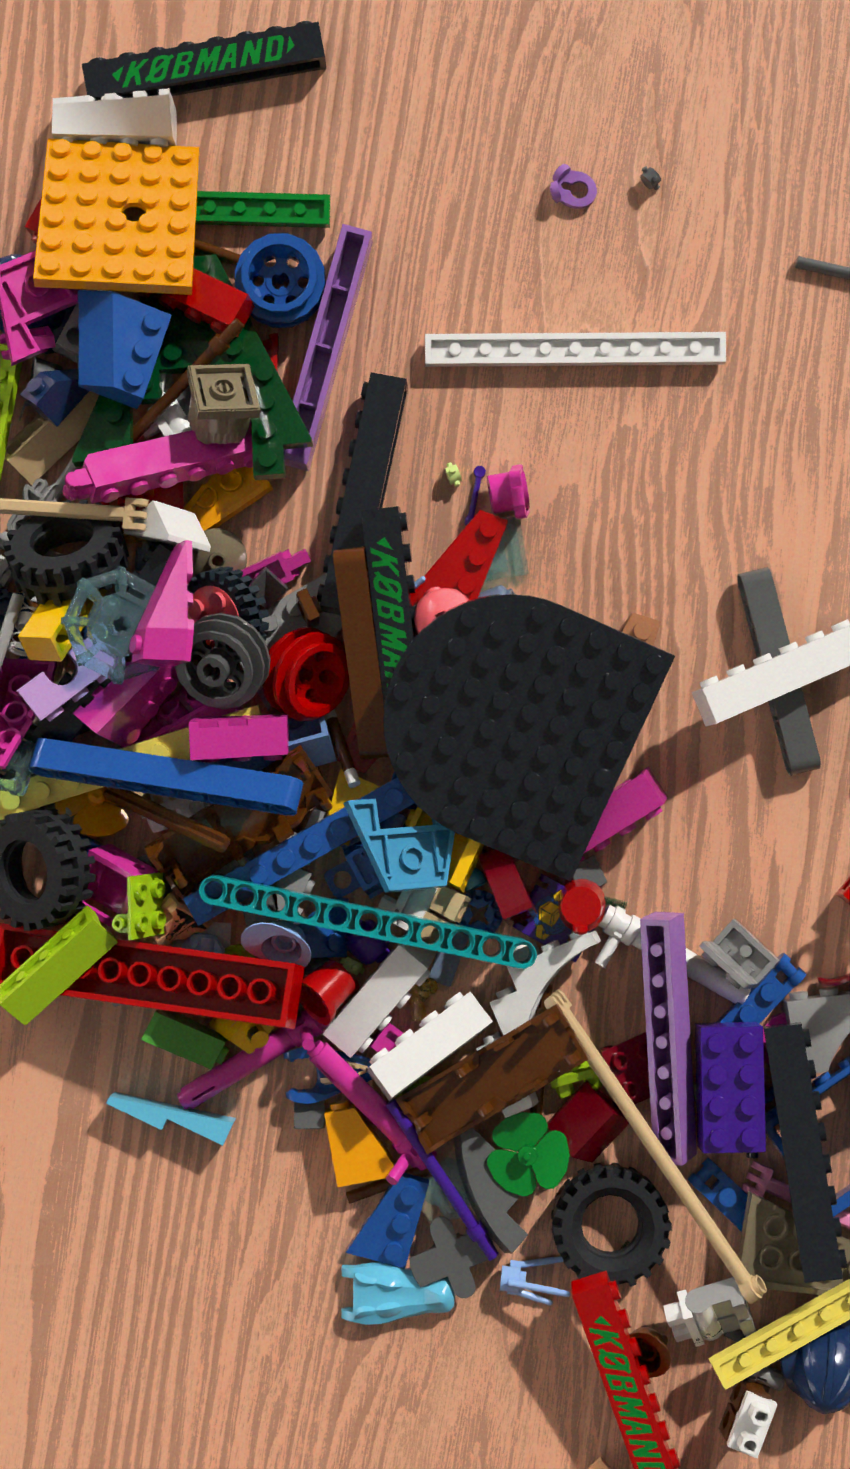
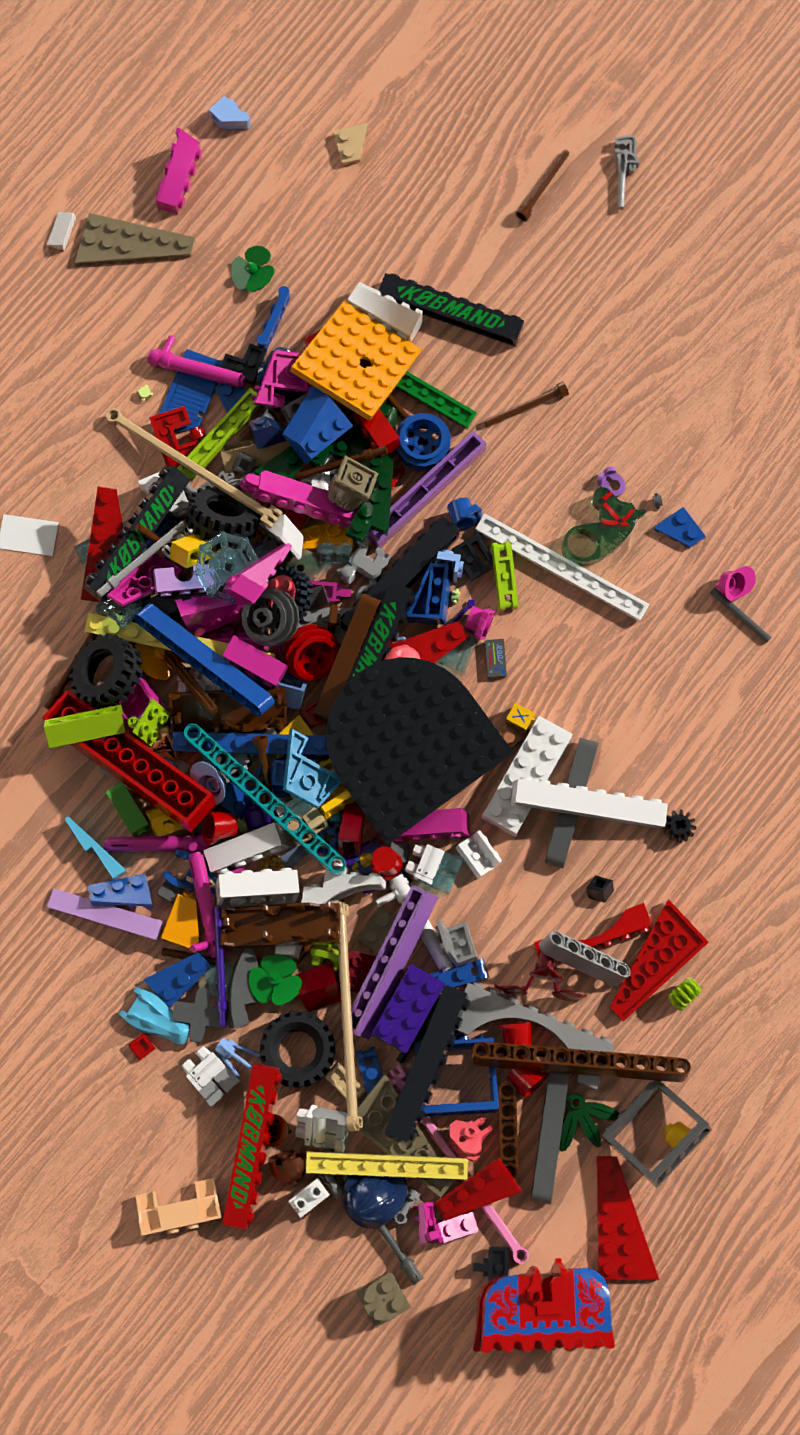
camera: 35 degrees right, 10 degrees down
(49, 456) = (244, 463): none -> dark grey tile
(242, 1196) = (104, 915): none -> lavender slope
(246, 517) = (334, 554): none -> clear light blue plate
(249, 1151) = (124, 891): none -> wing
(305, 504) = (365, 566): none -> light grey animal
(315, 846) = (260, 744): none -> reddish brown piece
(342, 749) = (306, 704): reddish brown bar -> none
(396, 351) = (463, 513): none -> blue piece
(398, 1341) = (141, 1047): none -> red tile
(420, 431) = (453, 560): none -> light blue bracket
(423, 493) = (433, 596): none -> blue wedge
(425, 96) = (559, 391): none -> reddish brown piece
(443, 411) = (472, 563): none -> black plate
(505, 407) = (504, 576): none -> lime plate
(517, 1329) = (204, 1074): none -> hips
(558, 530) = (495, 658): none -> dark grey tile
(614, 249) = (613, 528): none -> clear green animal
(623, 999) = (377, 931): none -> dark tan wing
(638, 871) = (430, 867): none -> hips
(643, 594) = (520, 718): none -> yellow brick
(687, 1232) = (337, 1078): none -> tan plate
(691, 1385) = (289, 1166): none -> copper cylinder
(696, 816) = (479, 854): none -> white bracket
(701, 639) = (534, 760): none -> white brick
(706, 198) = (681, 528): none -> blue wing
(826, 233) = (736, 583): none -> dark pink piece

